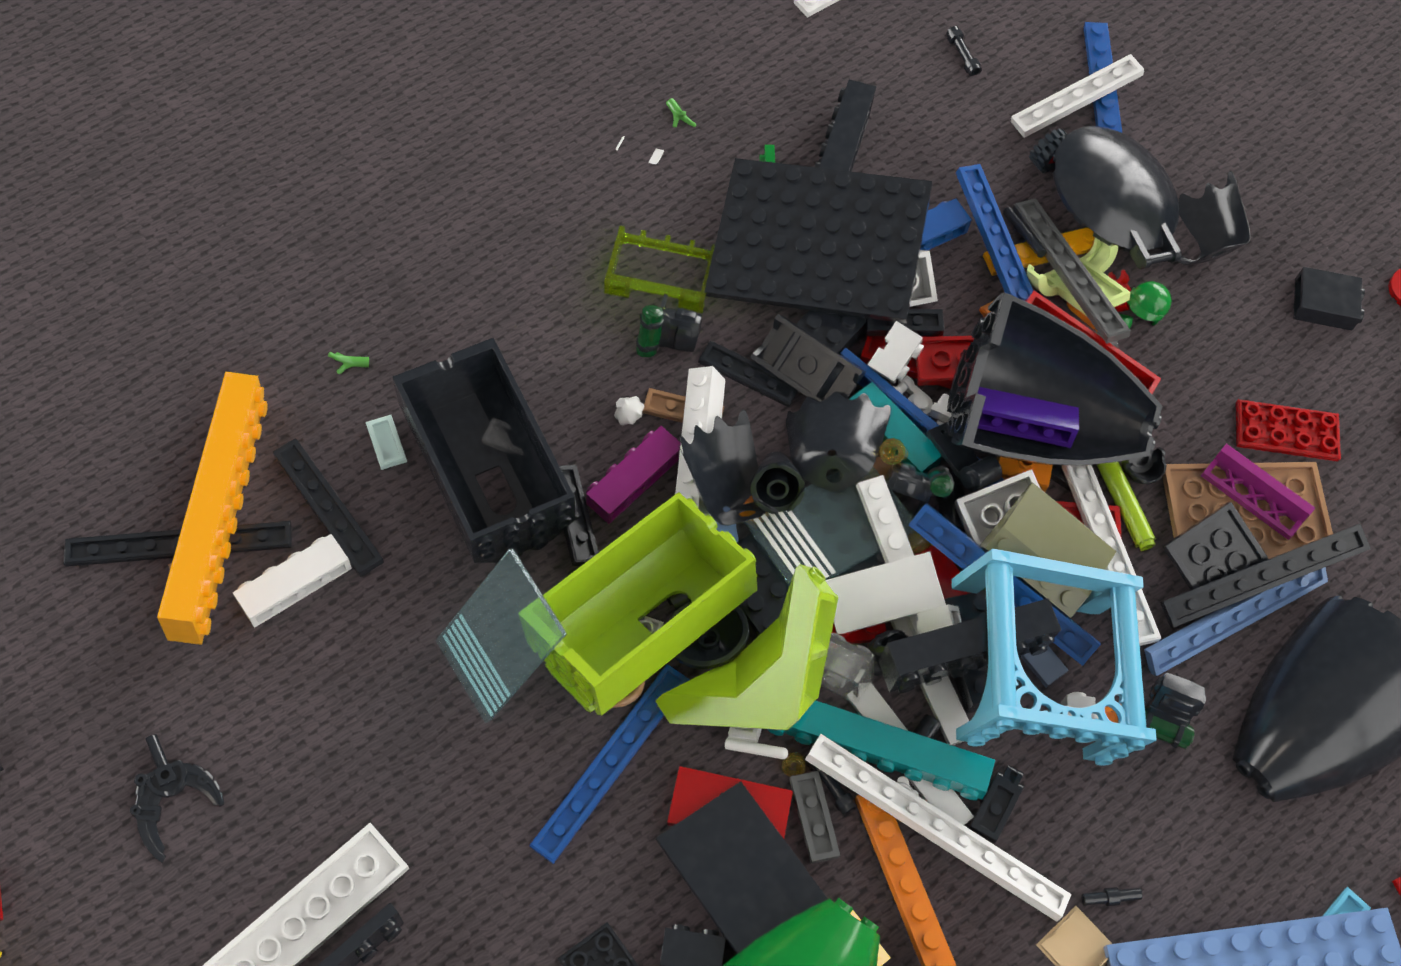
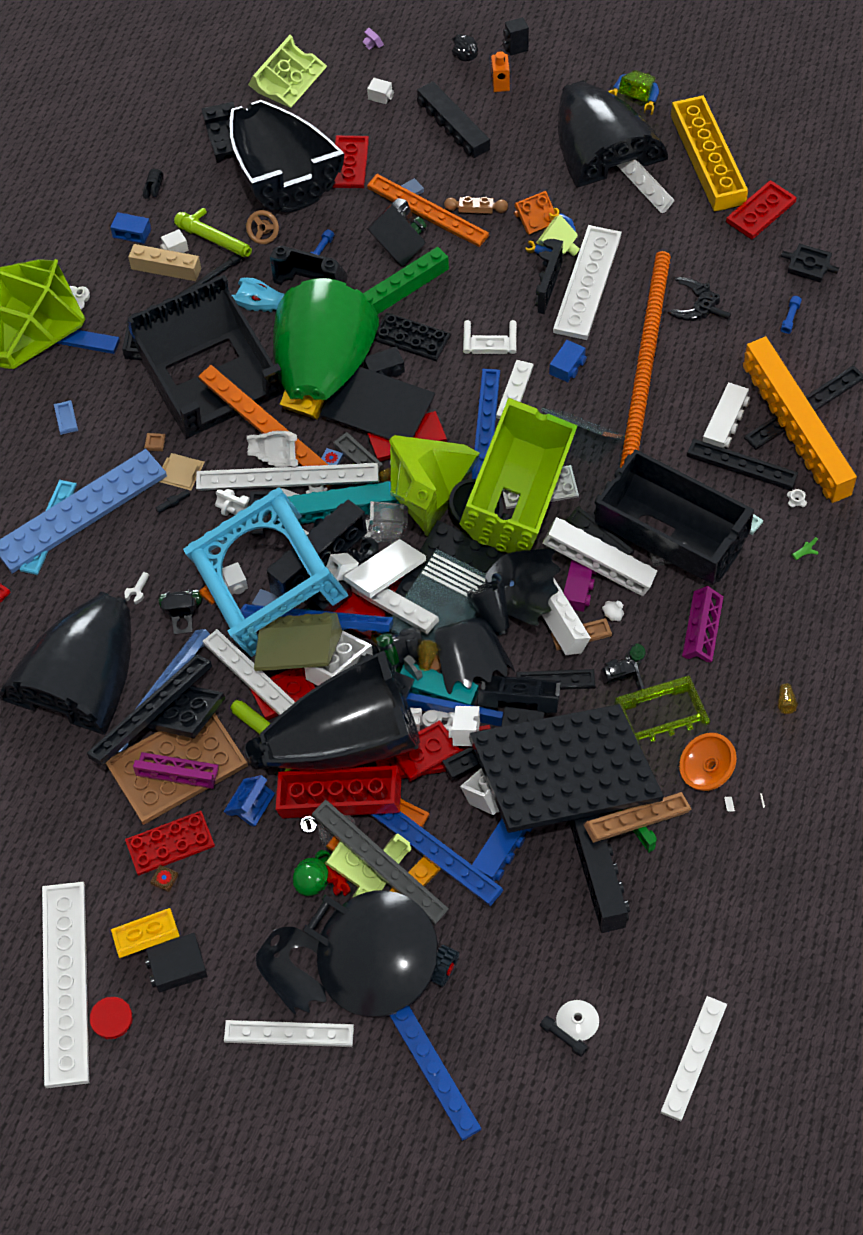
camera: 160 degrees right, 5 degrees down
(44, 707) = (787, 324): none -> blue bar
(298, 421) = (796, 494): none -> white plate
(312, 743) = (646, 355): none -> orange piece
(428, 795) = (567, 361): none -> blue brick
(515, 213) = (787, 702): none -> clear yellow cone
(515, 900) = (489, 344): none -> white plate
(531, 799) = (516, 384): none -> white plate
(543, 338) = (699, 621): none -> magenta fence
(606, 461) = (600, 556): none -> white brick
(662, 184) = (702, 755): none -> orange dish
(678, 114) = (737, 845): bright green bar -> none
(818, 156) = (636, 817): none -> medium nougat tile
(853, 837) = (332, 457): none -> medium blue tile
(920, 451) = (409, 666): none -> dark grey tile
(934, 879) = (274, 447): none -> white animal
(937, 65) = (578, 1029): none -> white dish
(1020, 828) = (230, 503): none -> white hips
(1024, 232) = (428, 885): black bar -> none
(1029, 417) = (356, 719): dark purple brick -> none
(1077, 95) = (448, 1034): white plate -> none
(1185, 420) = (250, 800): none -> blue bracket
(1213, 781) = (137, 589): none -> white bar
(1251, 194) = (289, 1033): none -> white tile
(1308, 394) = (164, 878): none -> clear orange tile
(1353, 341) = (144, 933): none -> yellow tile

